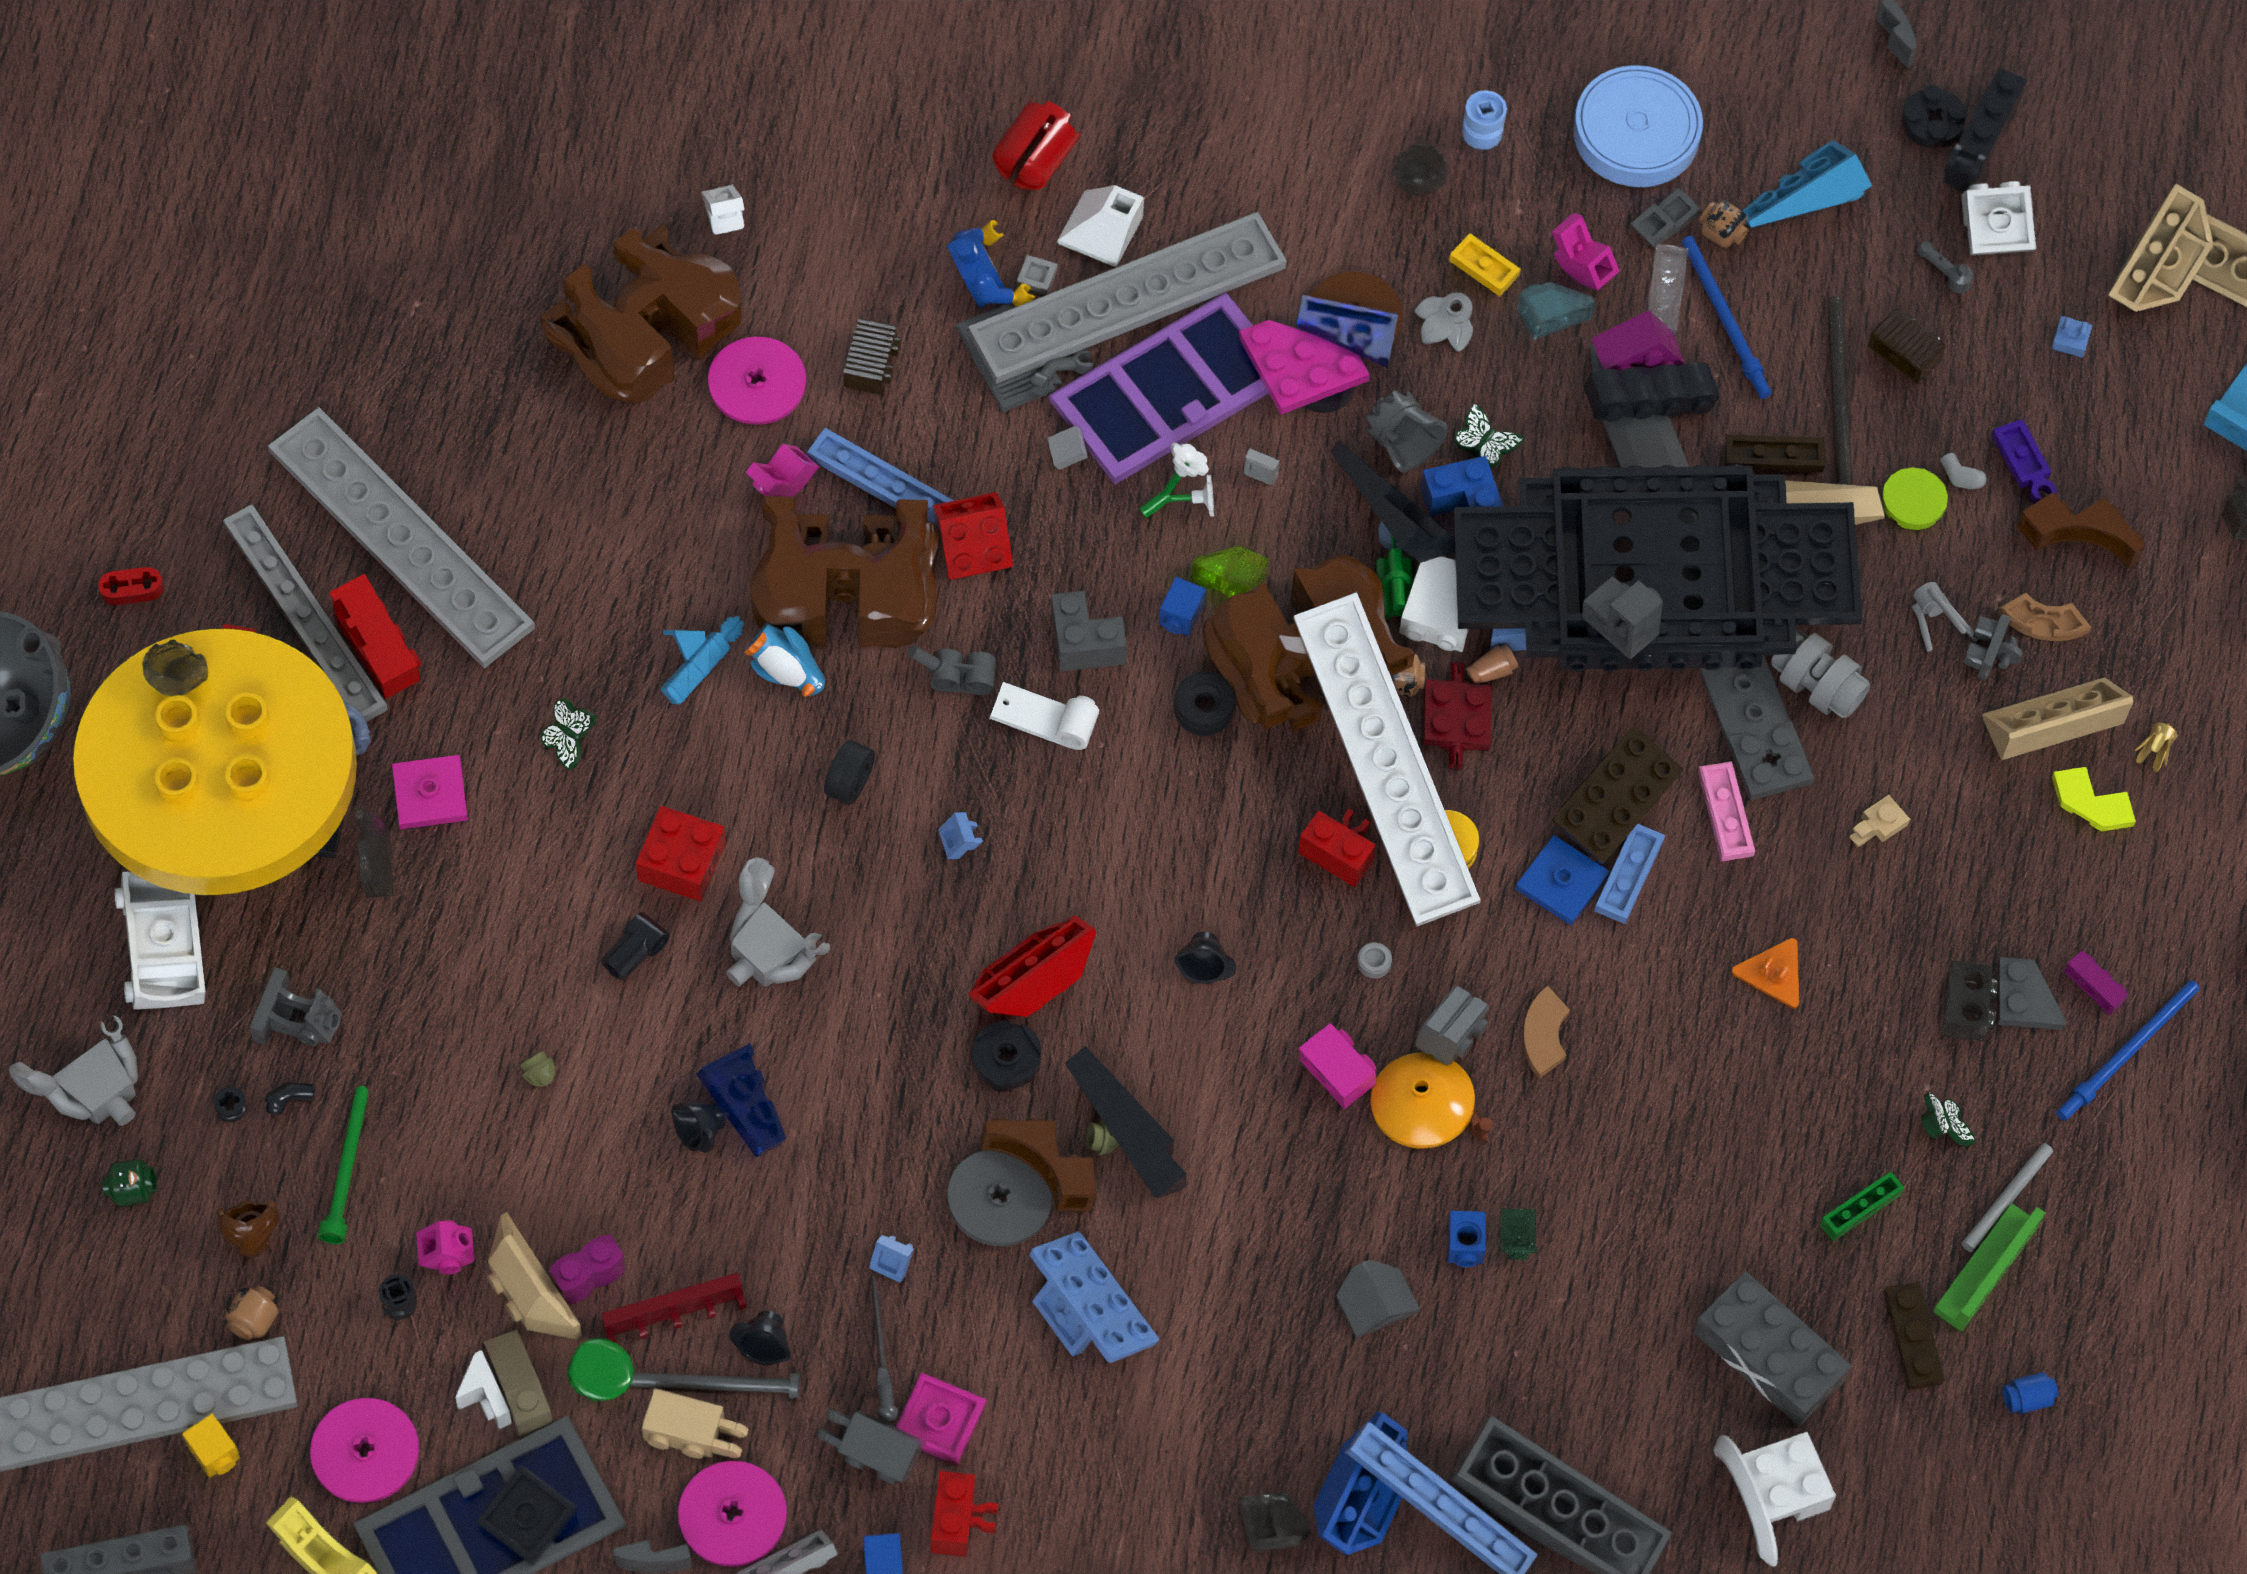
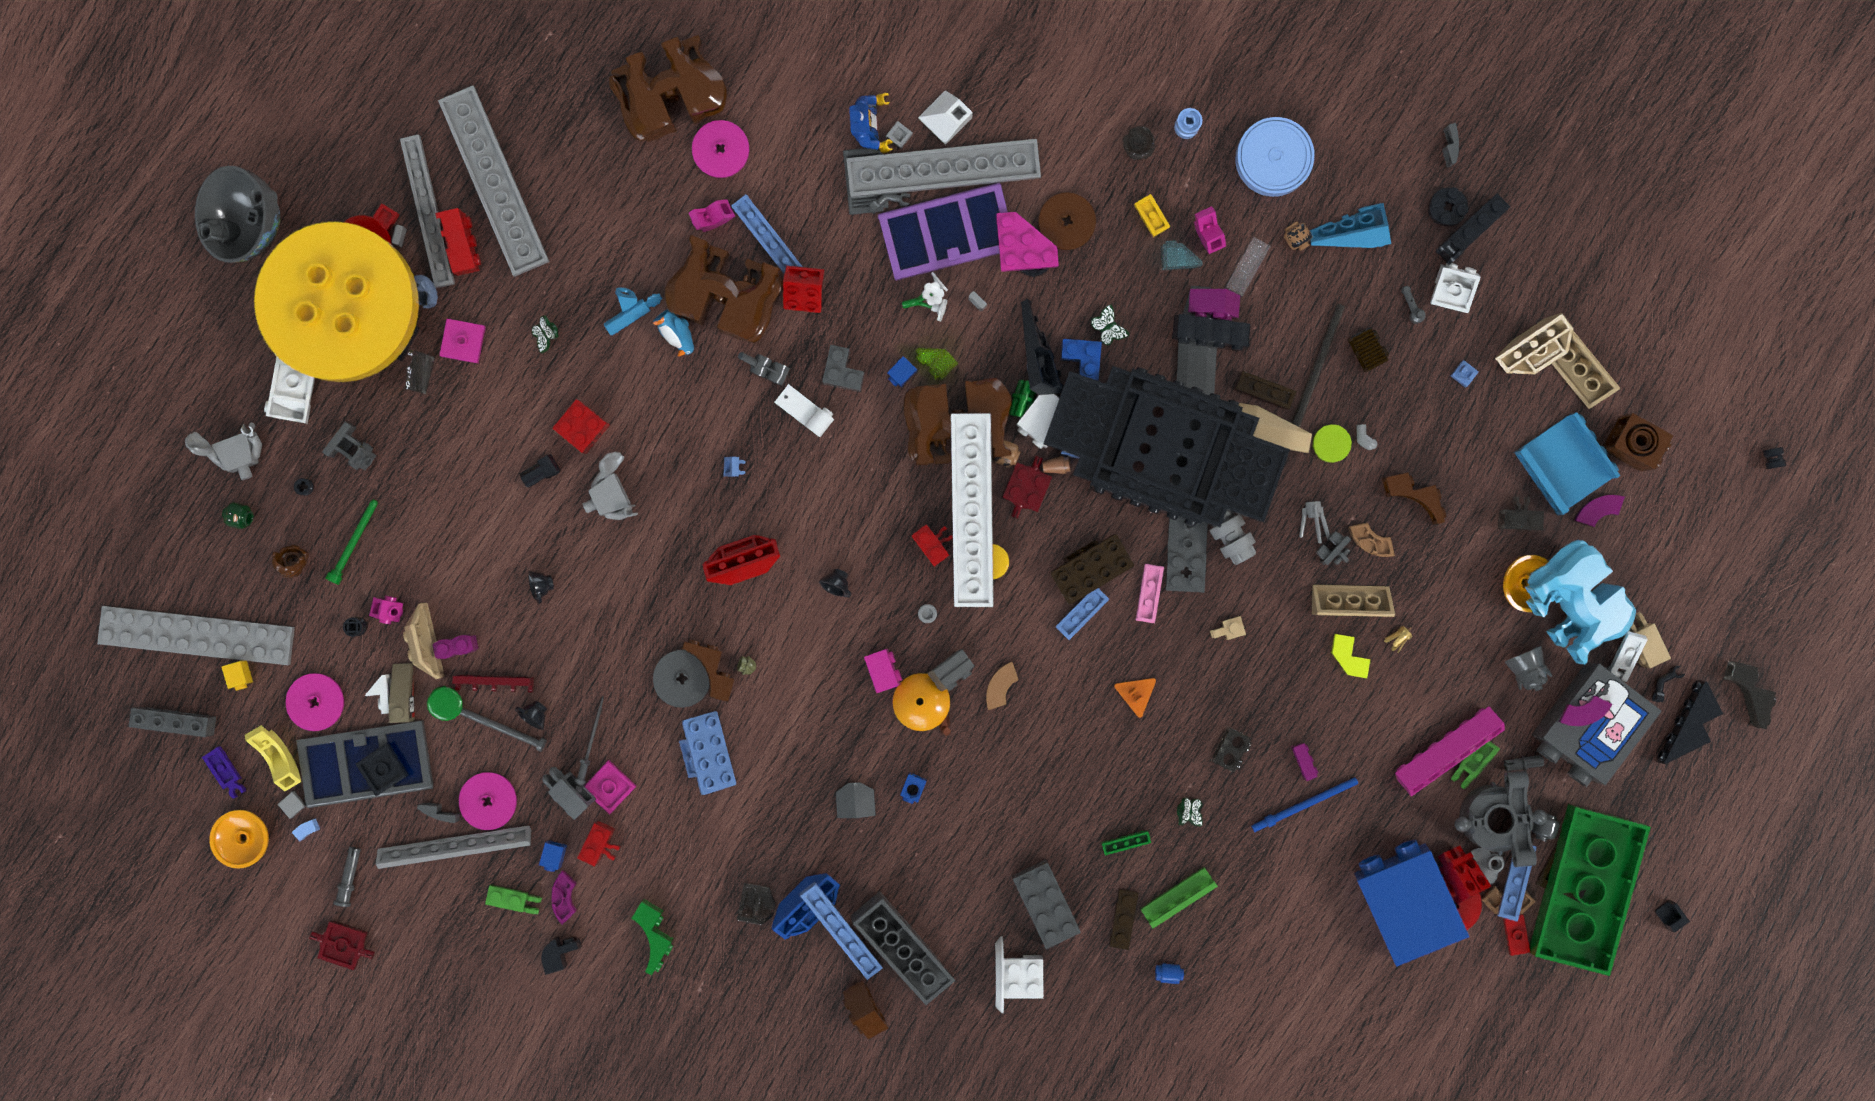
camera: 25 degrees right, 25 degrees up
(131, 586) = (339, 165): red beam -> none
(174, 668) = (323, 246): clear smoke hair -> none
(251, 1313) = (279, 609): medium nougat head -> none
(288, 1091) = (331, 491): black arm -> none
(539, 1069) = (467, 524): olive plate -> none
(689, 1426) = (480, 749): tan hinge -> none
(724, 209) = (738, 31): white slope -> none
(740, 1095) = (567, 579): clear blue wing -> none
(849, 772) = (685, 411): black tyre -> none
(871, 355) = (787, 156): dark brown brick -> none
(891, 1258) = (613, 694): medium blue tile -> none
(1004, 1074) = (722, 607): black plate -> none
(1057, 137) = (931, 62): red cylinder -> none
(1067, 447) = (875, 251): light grey tile -> none
(1131, 1125) = (761, 665): black wedge -> none
(1204, 721) = (892, 444): black tyre -> none
(1350, 326) = (1059, 233): clear blue wing -> none
(1405, 430) = (1064, 307): dark grey hat -> none
(1444, 323) = (1114, 245): light grey plate -> none
(1518, 1232) = (941, 795): clear green bracket -> none
(1562, 880) = (1045, 603): blue plate -> none
(1624, 614) = (1130, 480): dark grey brick -> none
(1666, 219) = (1267, 220): dark grey slope -> none
(1750, 366) = (1275, 331): blue bar -> none
(2007, 1197) = (1204, 862): light grey bar -> none
(2024, 458) = (1403, 441): dark purple plate -> none
(2025, 996) = (1263, 755): dark grey wing -> none

